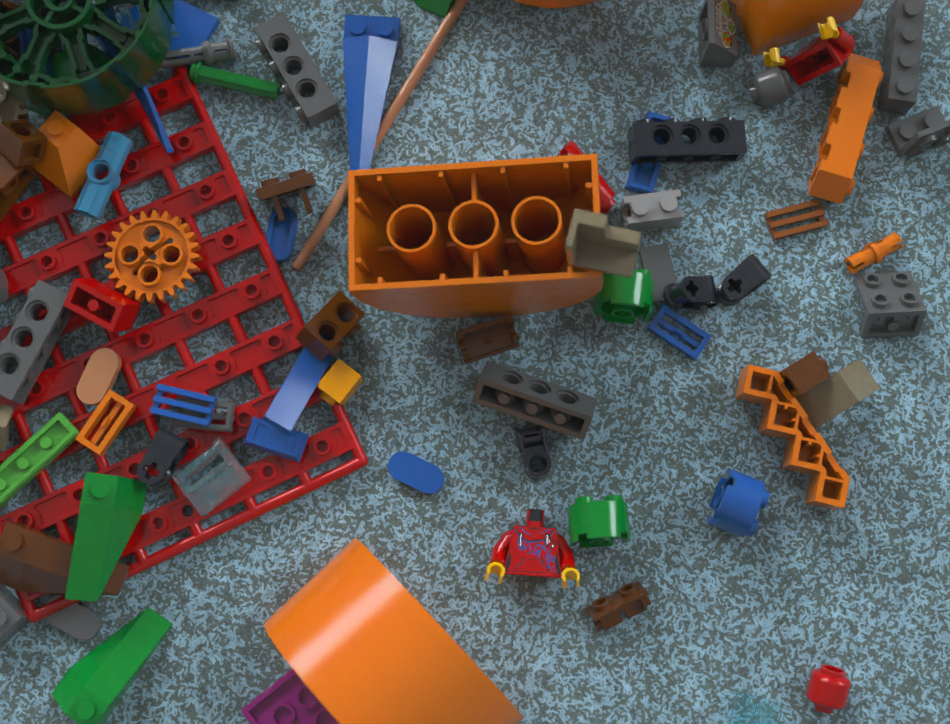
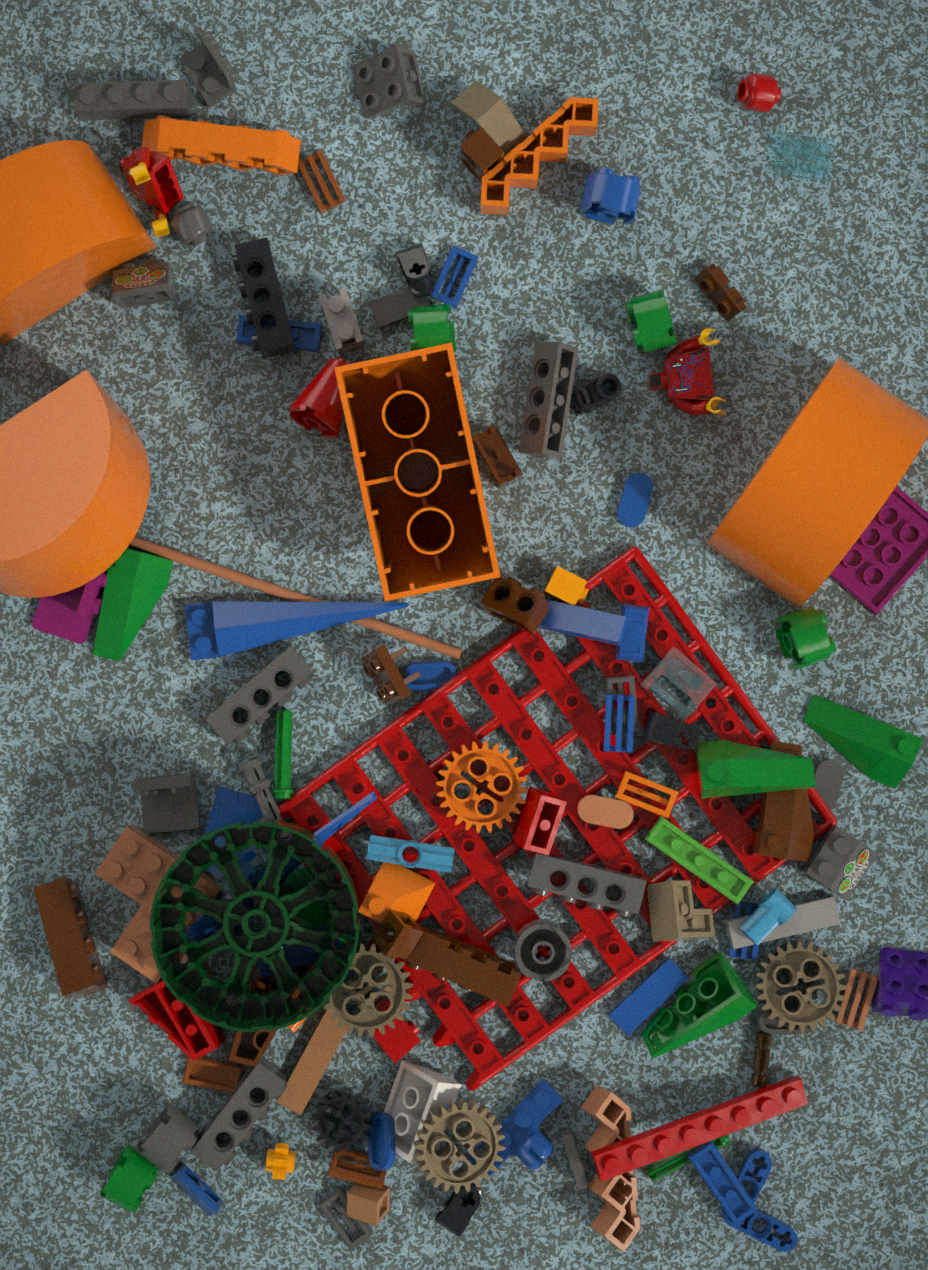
camera: 95 degrees left, 10 degrees up
(231, 622) = (804, 637): none -> green brick
(601, 247) = (429, 344): dark tan panel -> none
(745, 279) = (391, 221): black piece -> none
(873, 253) = (341, 102): orange pin -> none

